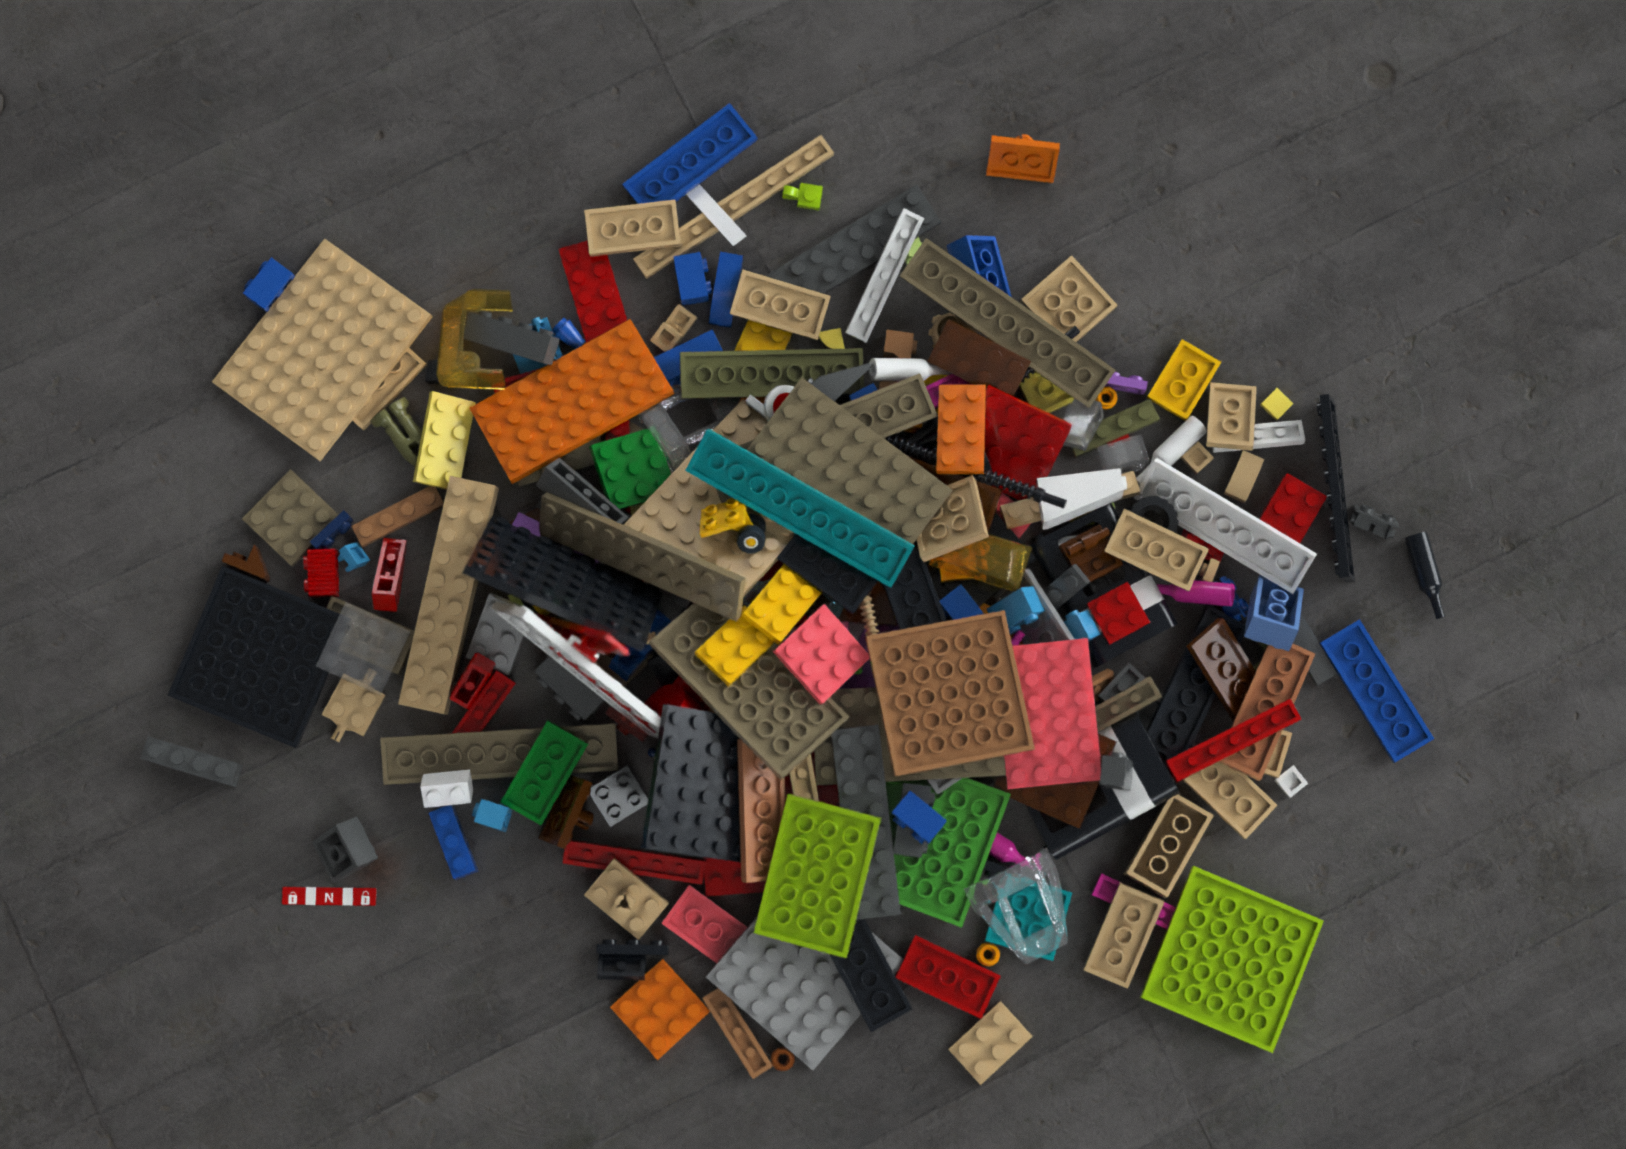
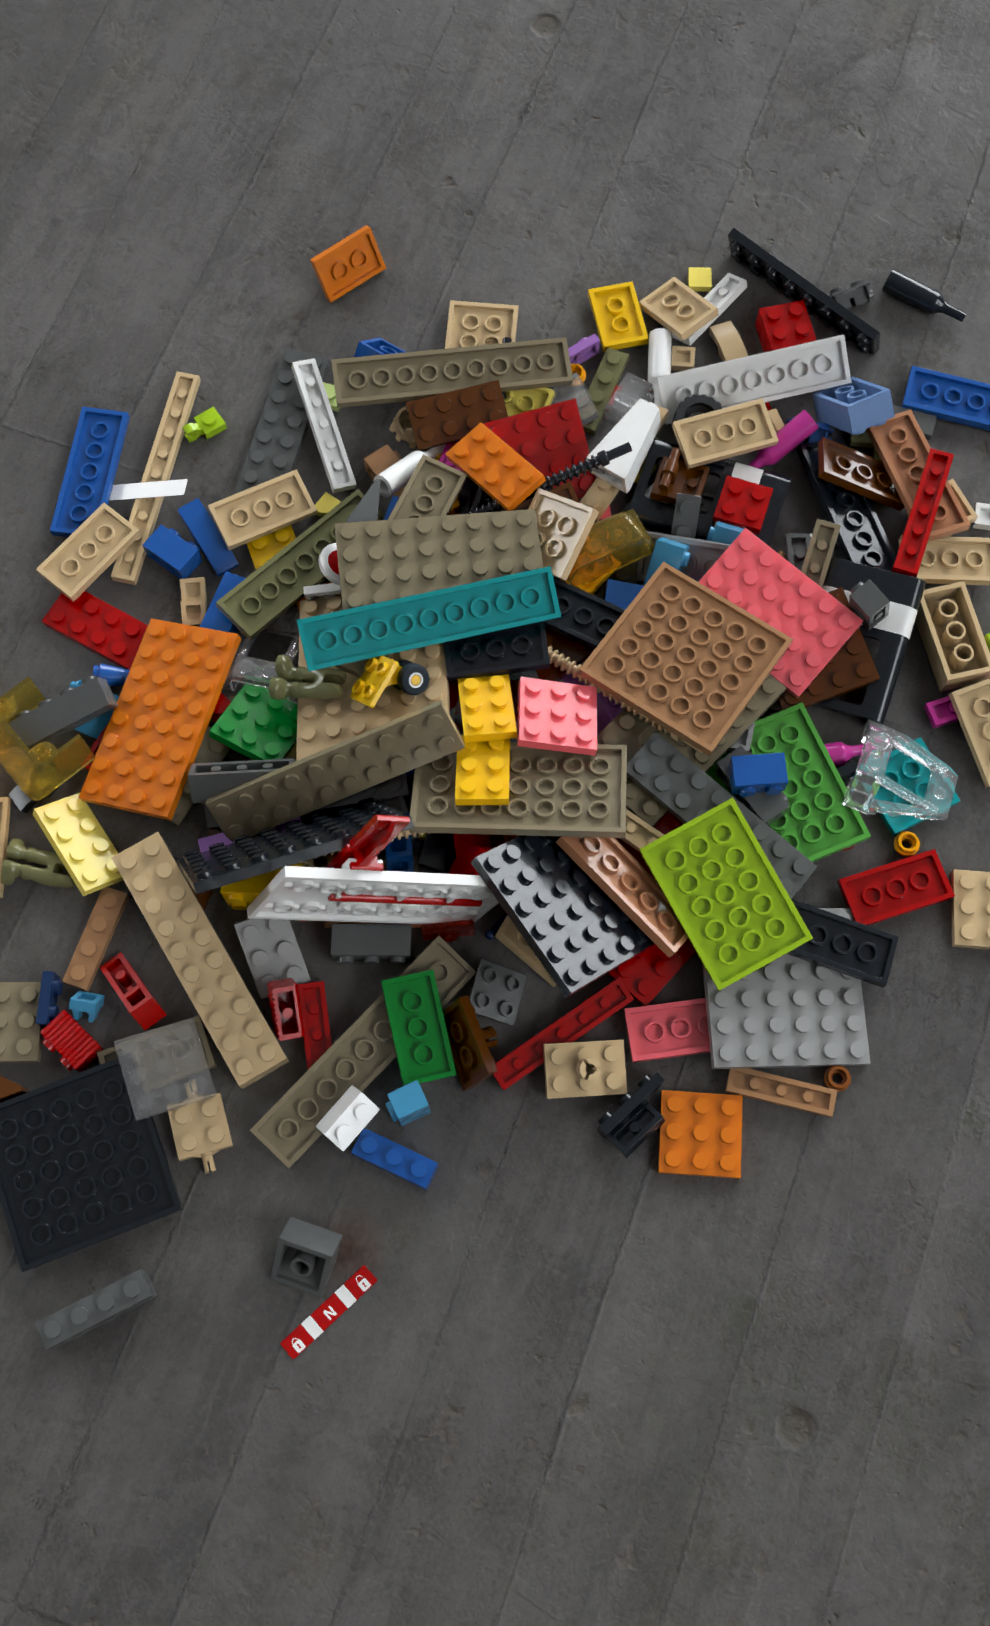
camera: 40 degrees left, 10 degrees down
(679, 450) = (321, 682): none -> olive piece

